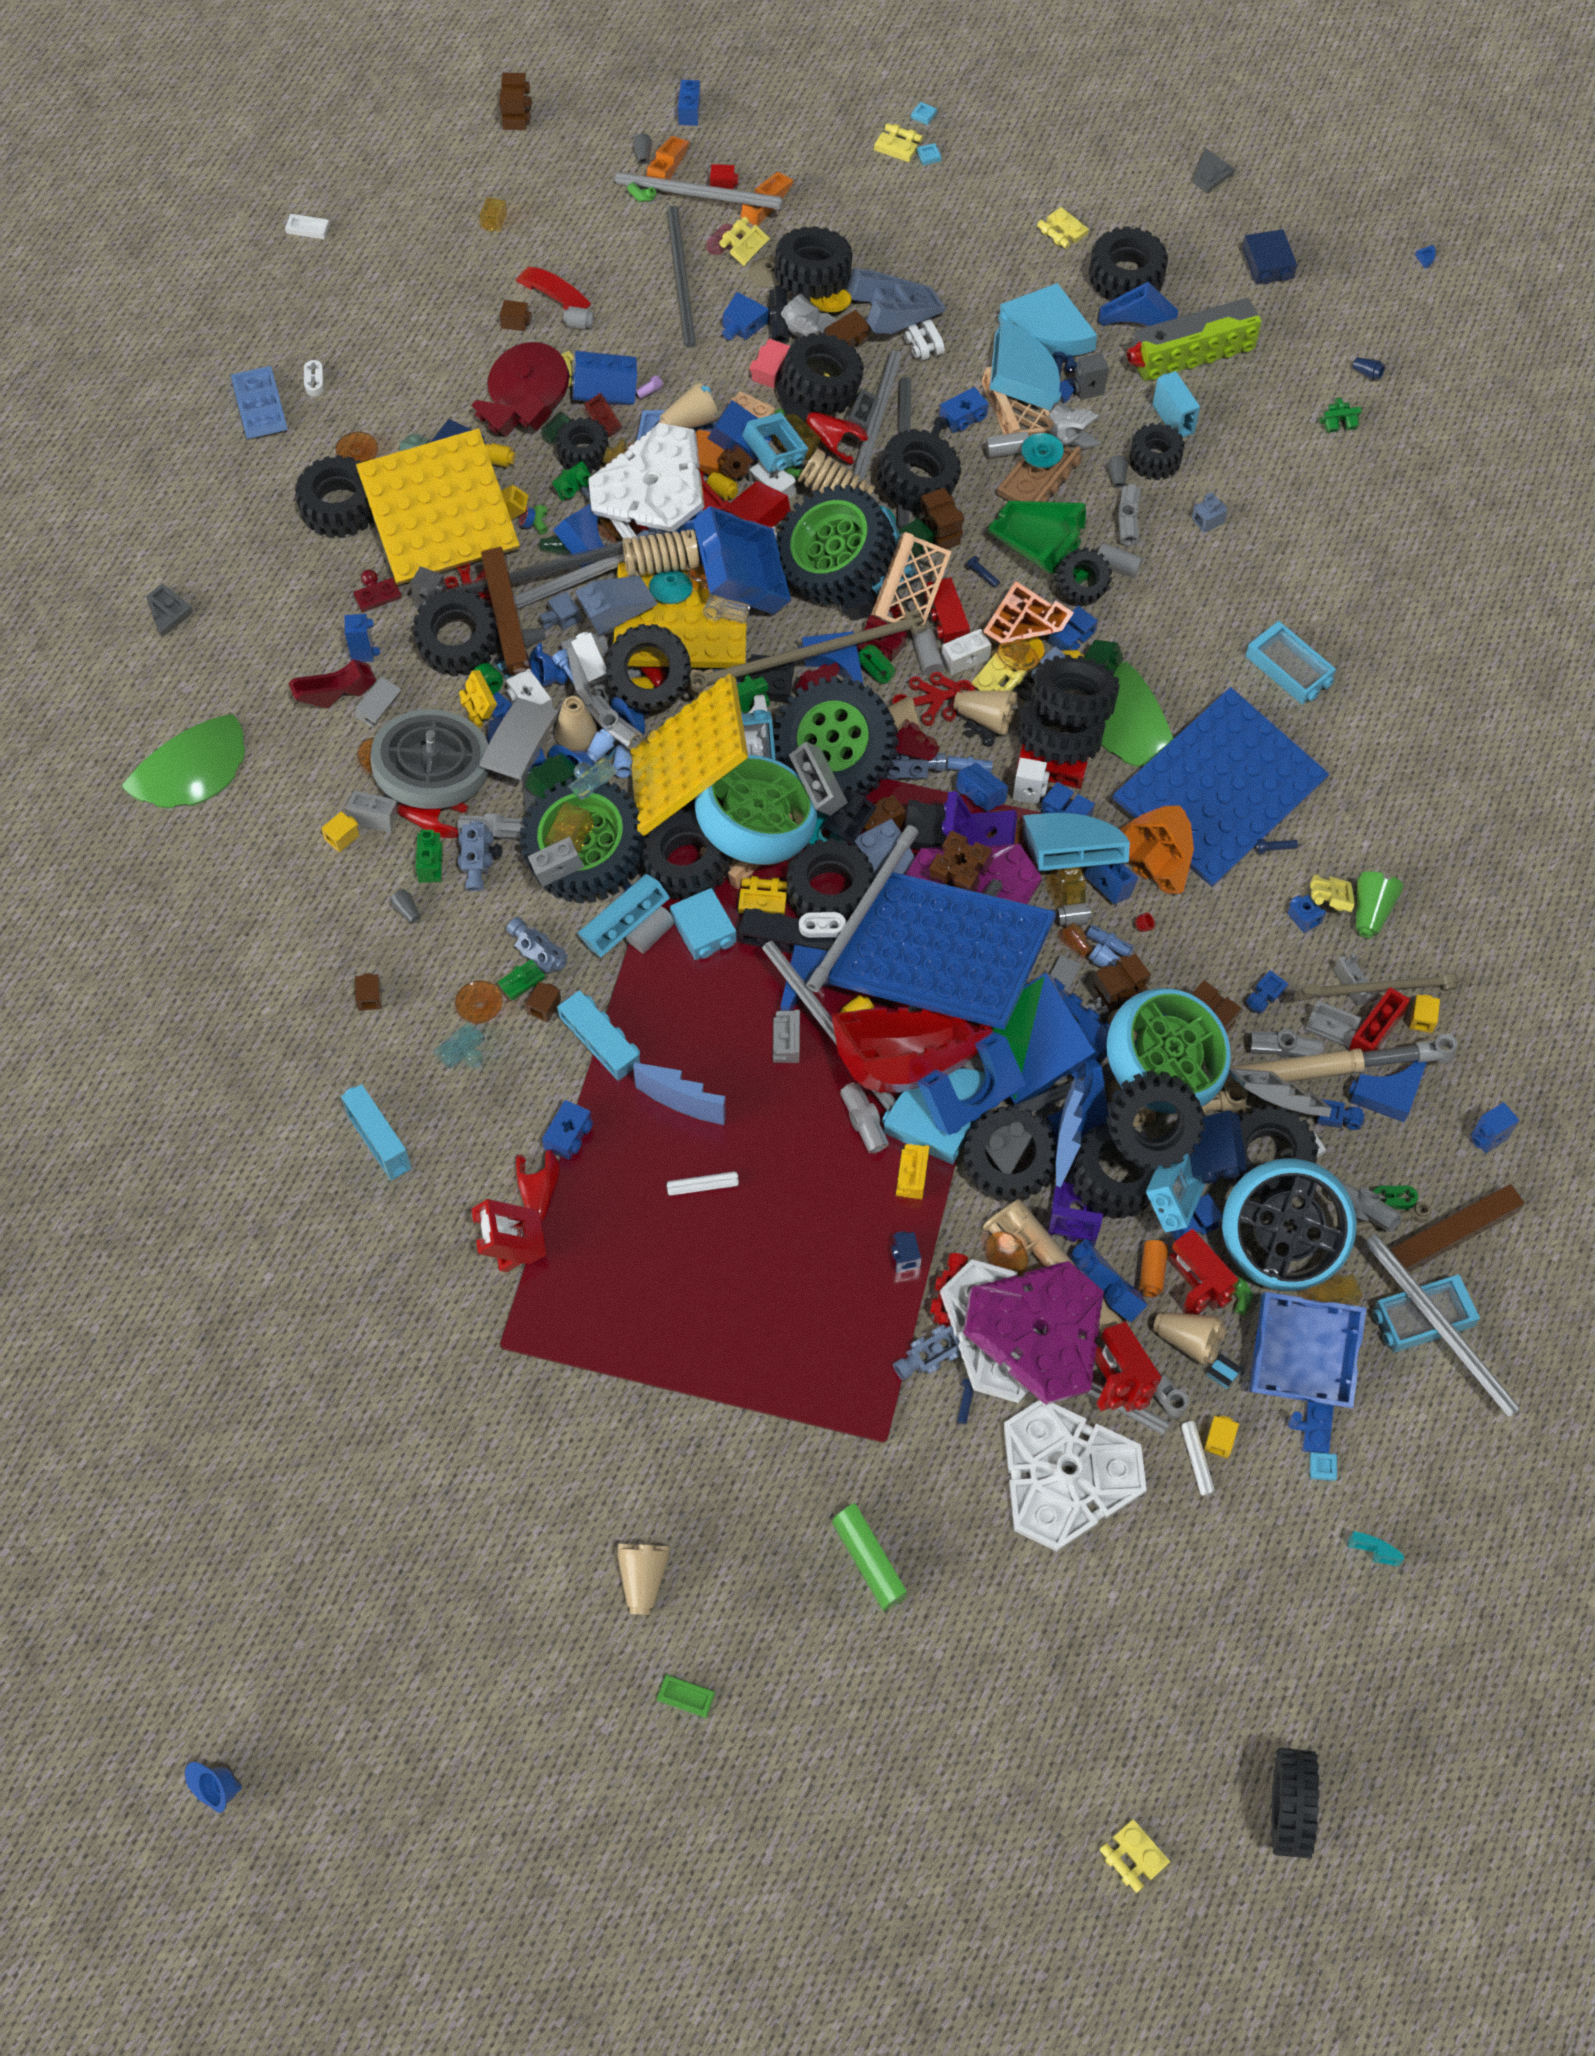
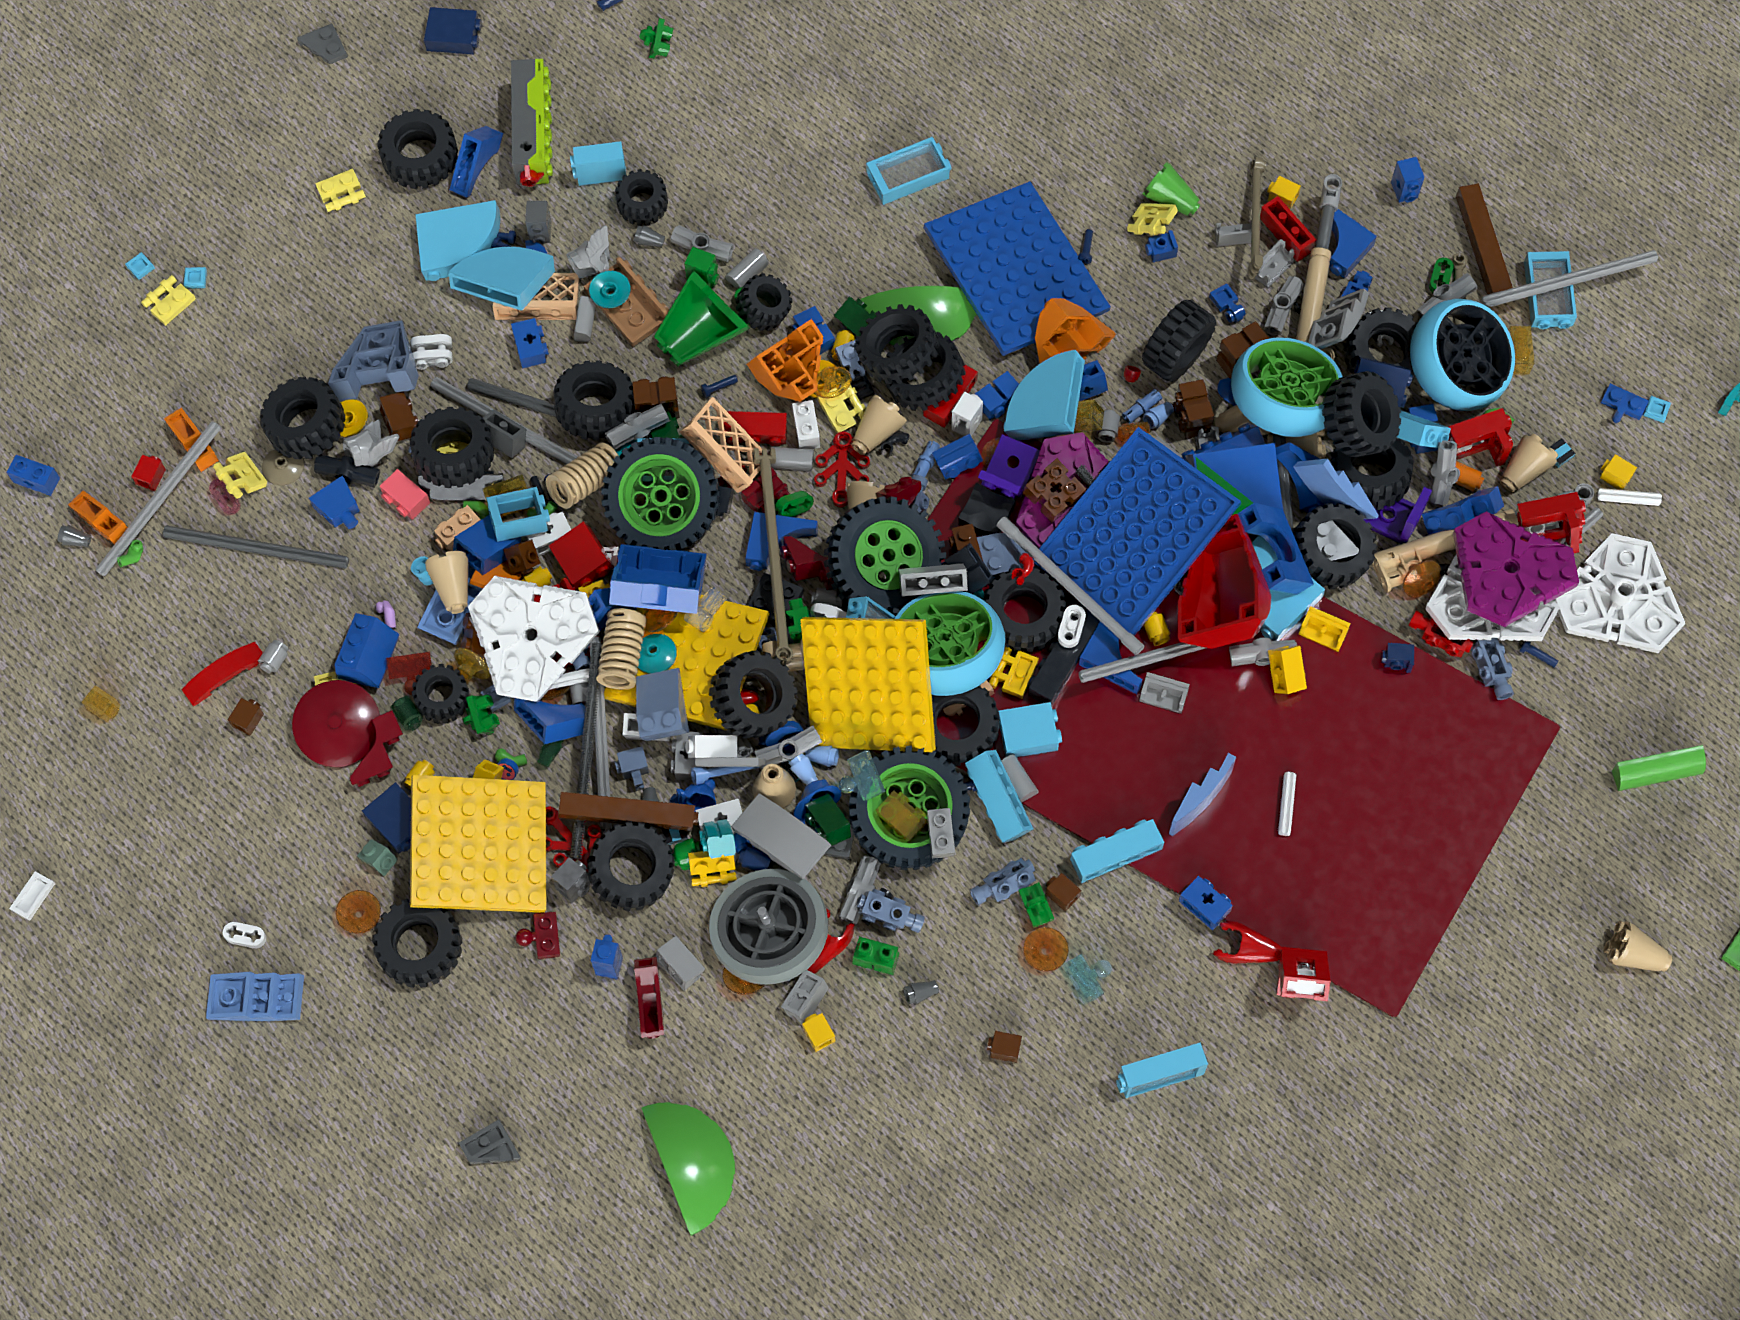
camera: 70 degrees left, 5 degrees up
(498, 686) = (717, 839): none -> brick
(832, 430) = (518, 459): red animal -> none
(848, 1141) = (1287, 669): none -> yellow hinge
(869, 864) = (1028, 564): none -> red arm
(903, 509) = (637, 426): none -> light grey piece
(940, 423) = (535, 369): black piece -> none
(1097, 516) = (703, 264): none -> green brick
(1139, 1243) = (1444, 472): none -> light grey piece
(1188, 941) = (1179, 340): none -> black tyre
(1209, 513) = (726, 179): sand blue brick -> none
(1307, 1349) = (1567, 382): tile -> none

